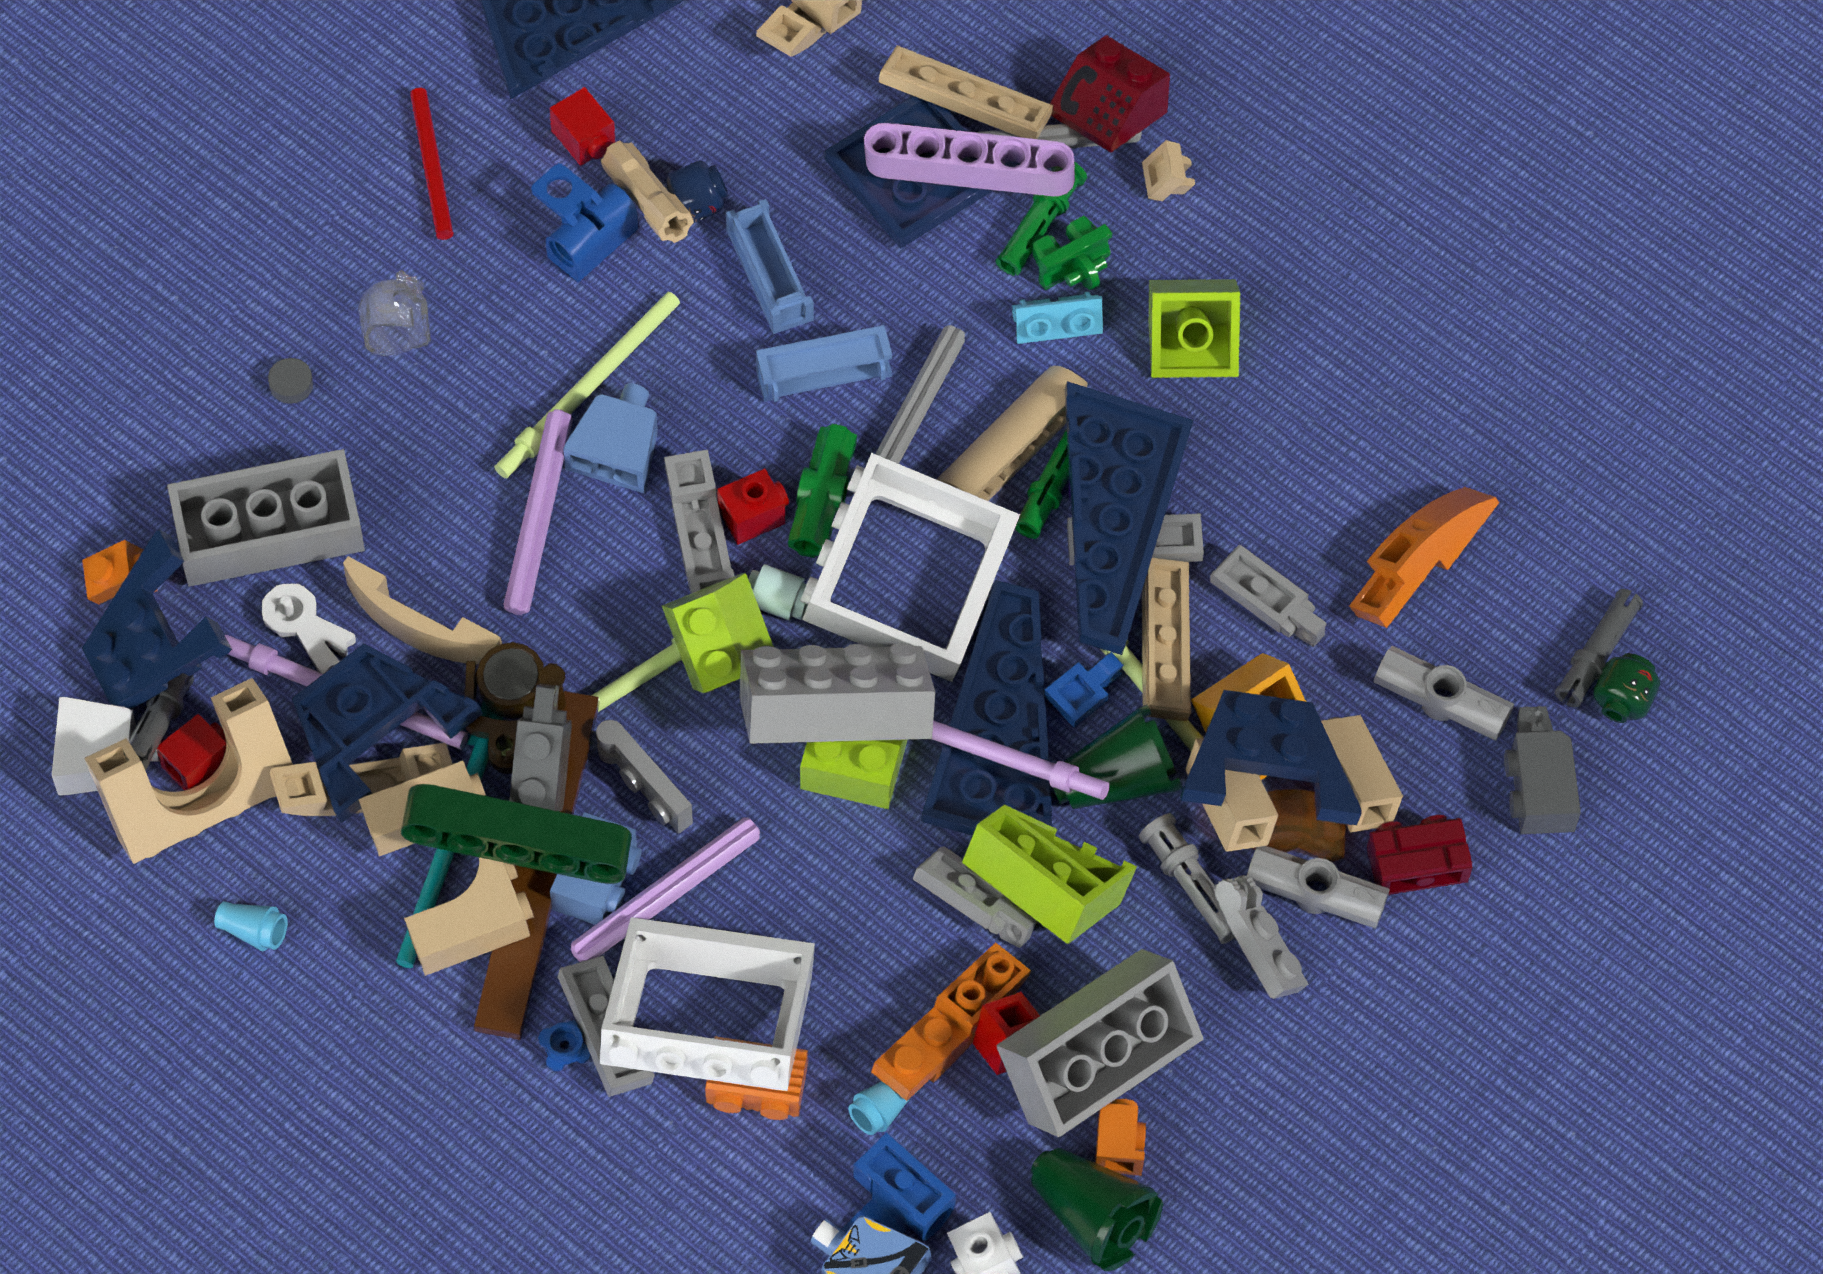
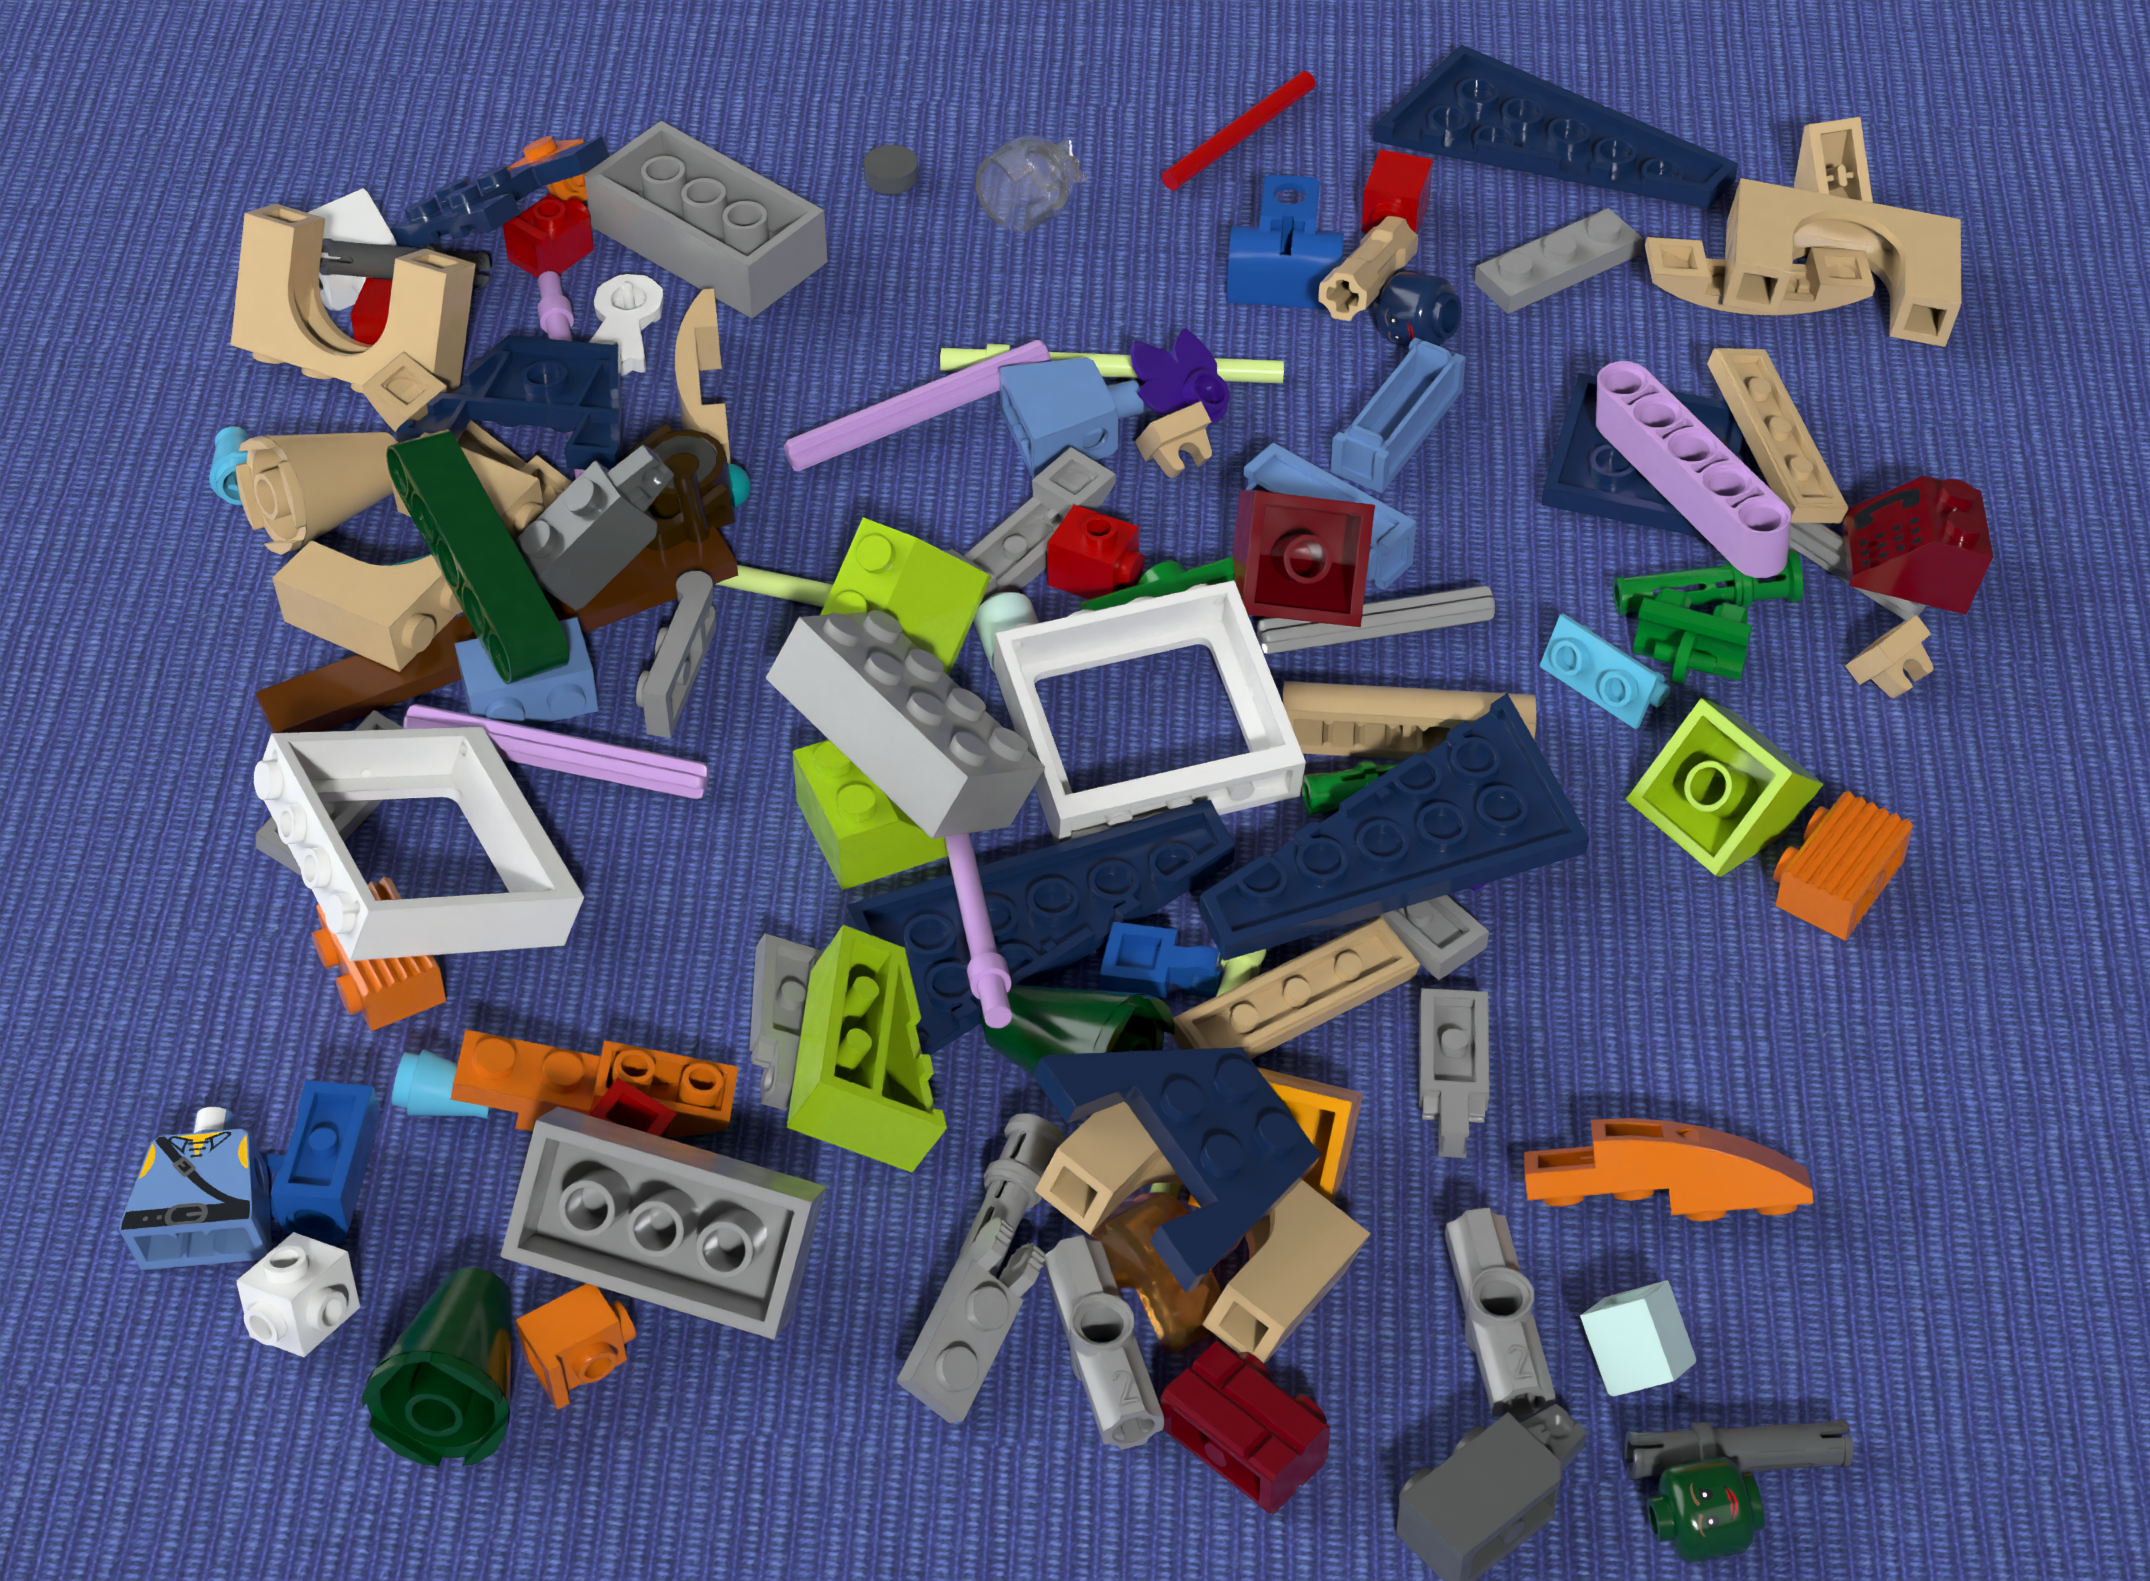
camera: 55 degrees right, 15 degrees down
(183, 605) = (549, 235): none -> red brick
(325, 890) = (311, 483): none -> tan cone
(646, 358) = (1180, 377): none -> dark purple plate
(685, 395) = (1173, 433): none -> tan tile
(706, 84) = (1558, 260): none -> light grey plate
(869, 402) = (1302, 557): none -> dark red slope
(1290, 314) = (1842, 864): none -> orange brick
(1504, 641) = (1638, 1339): none -> light aqua panel

